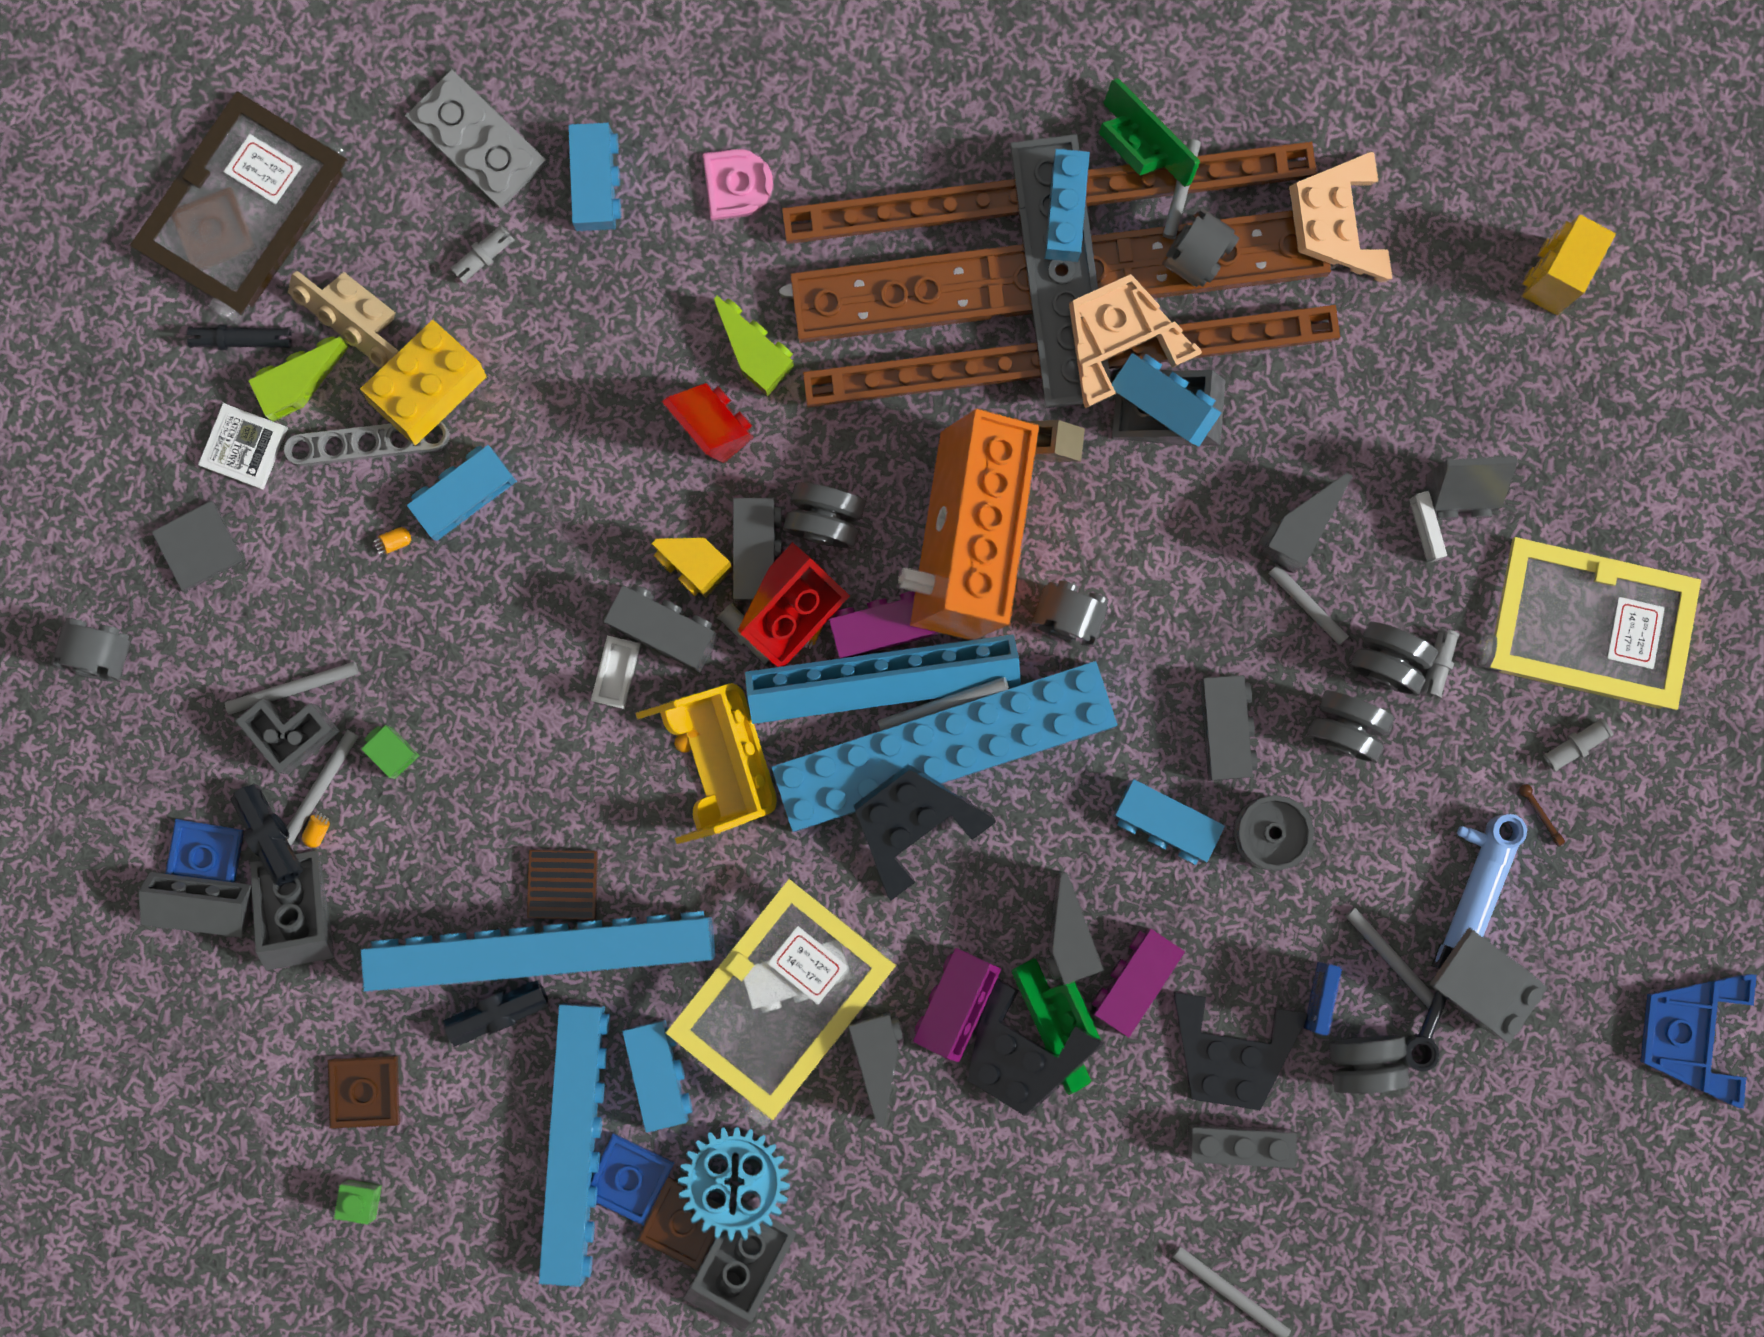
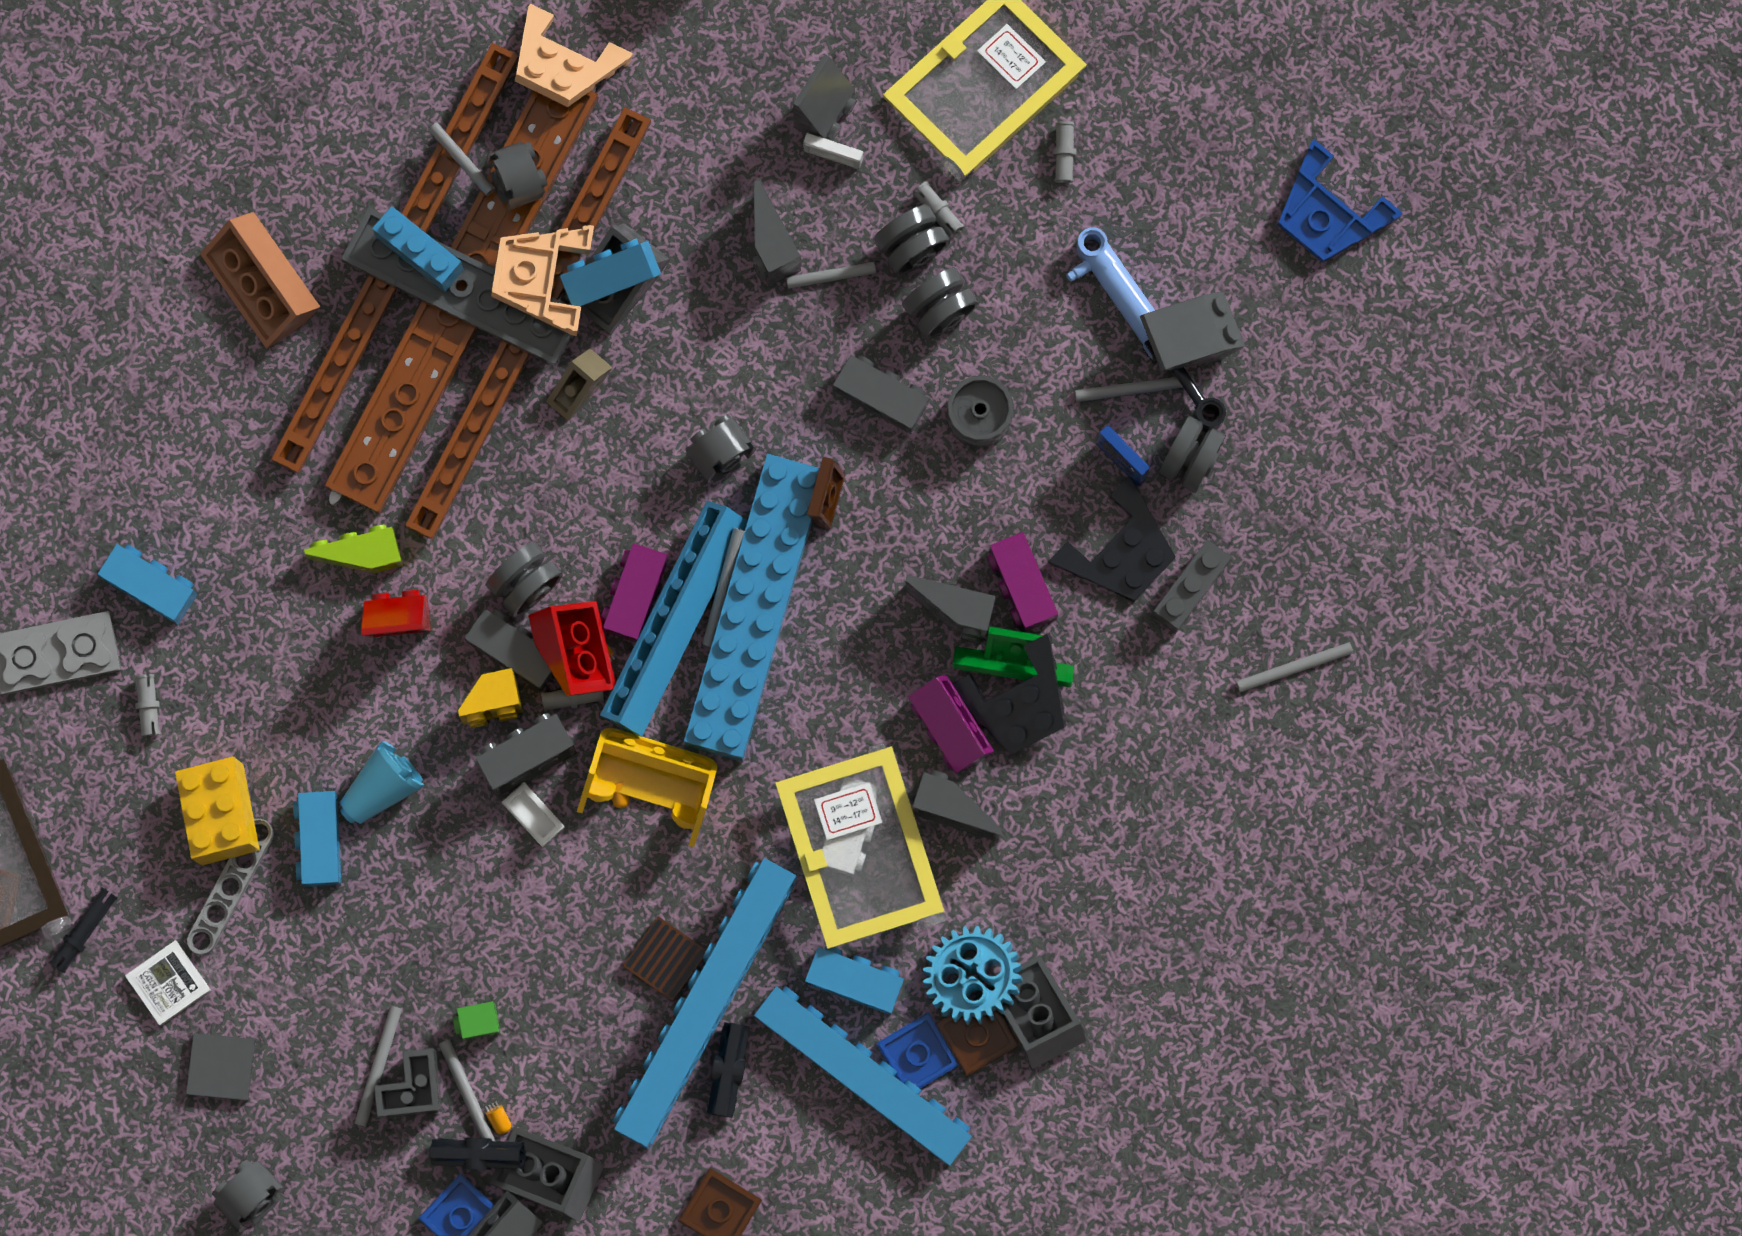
camera: 60 degrees left, 5 degrees down
(293, 383) = (147, 913): lime slope -> none
(349, 311) = (124, 834): tan bracket -> none
(393, 540) = (318, 916): light orange piece -> none
(548, 514) = (380, 785): none -> medium azure cone
(736, 183) = (226, 481): bright pink tile -> none
(904, 812) = (783, 666): black wing -> none
(944, 83) = (259, 279): none -> nougat slope
(973, 526) = (608, 473): orange piece -> none
(1095, 741) = (826, 494): none -> reddish brown tile
(1143, 137) = (404, 161): green bracket -> none
(1168, 822) = (921, 482): dark azure brick -> none
(1526, 791) = (1073, 211): reddish brown hinge -> none

